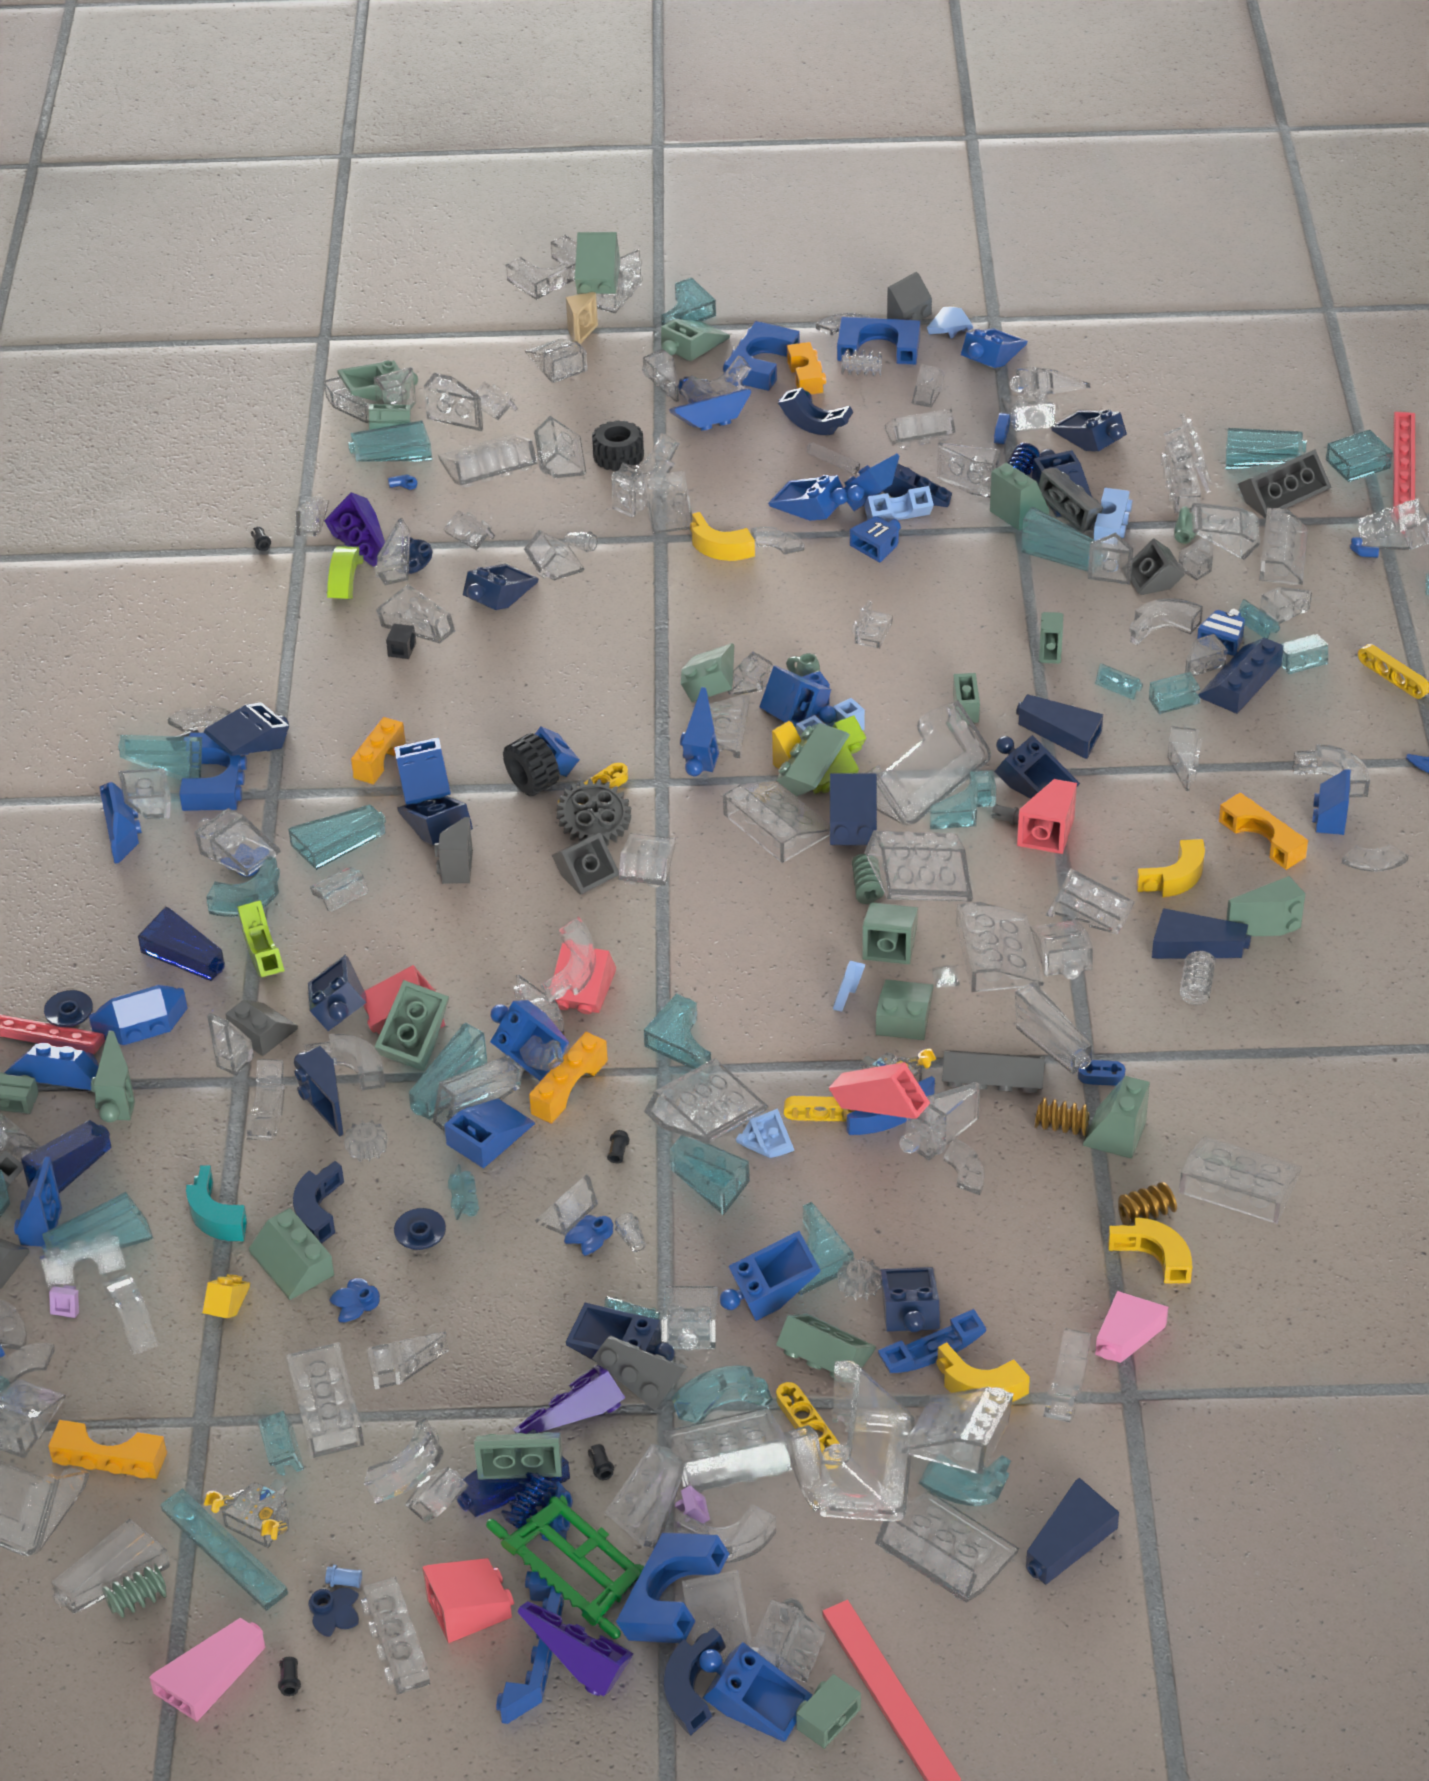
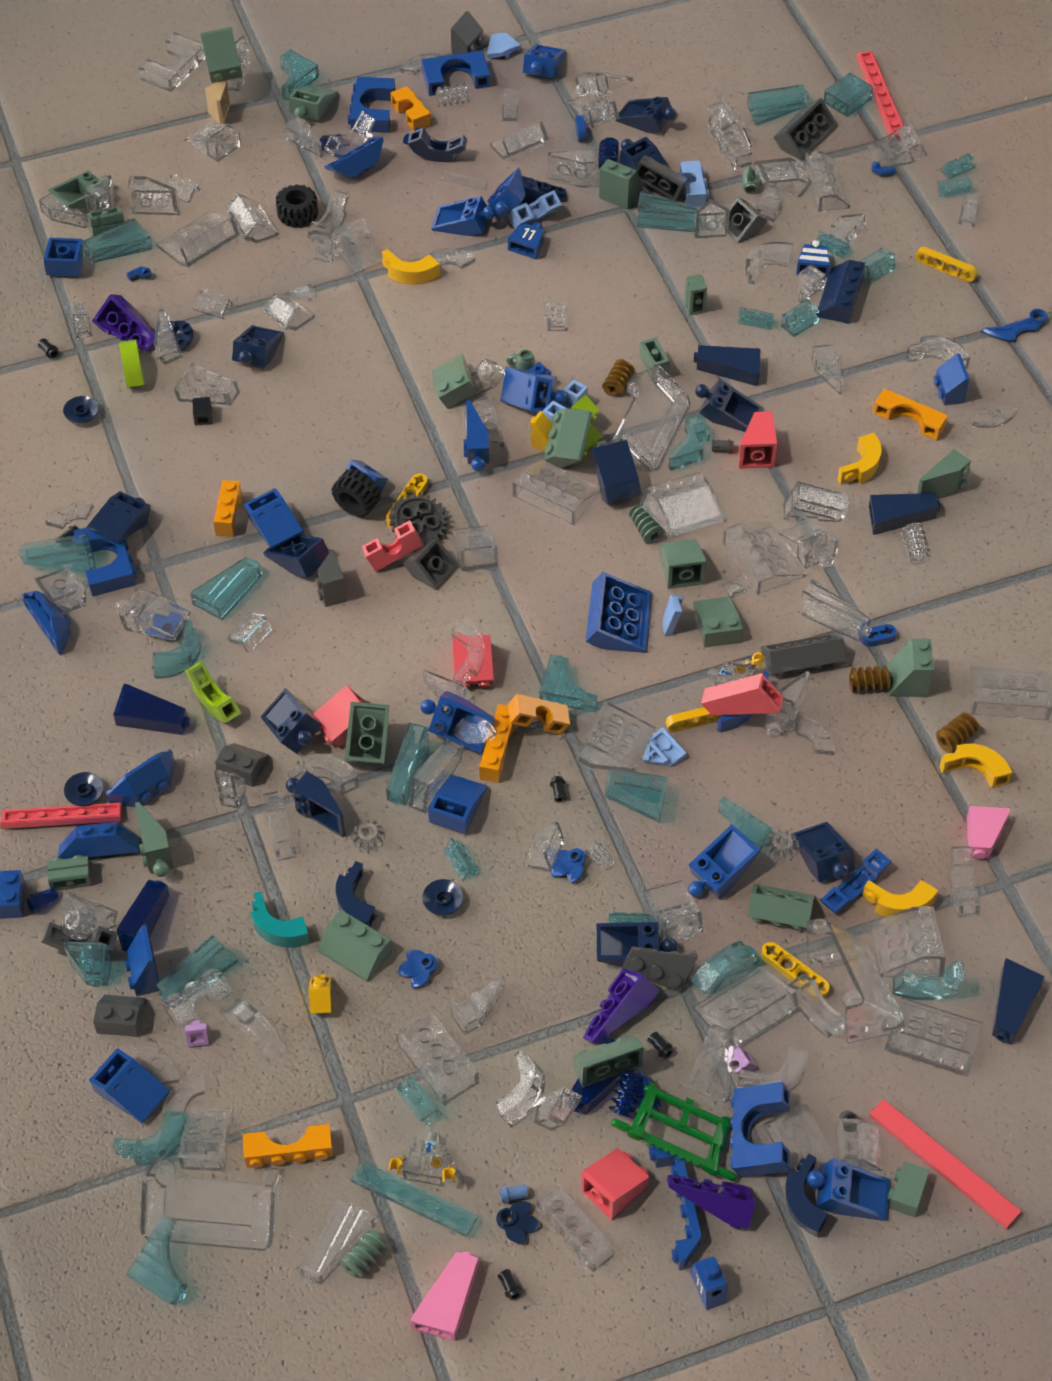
camera: 20 degrees left, 10 degrees up
(264, 609) = (80, 409): none -> dark blue dish
(323, 446) = (63, 257): none -> blue slope
(526, 1734) = (708, 1279): none -> blue torso
(529, 839) = (381, 555): none -> coral arch
(646, 1060) = (525, 709): none -> light orange arch
(784, 972) = (618, 615): none -> blue slope
(911, 709) = (618, 377): none -> pearl gold piece

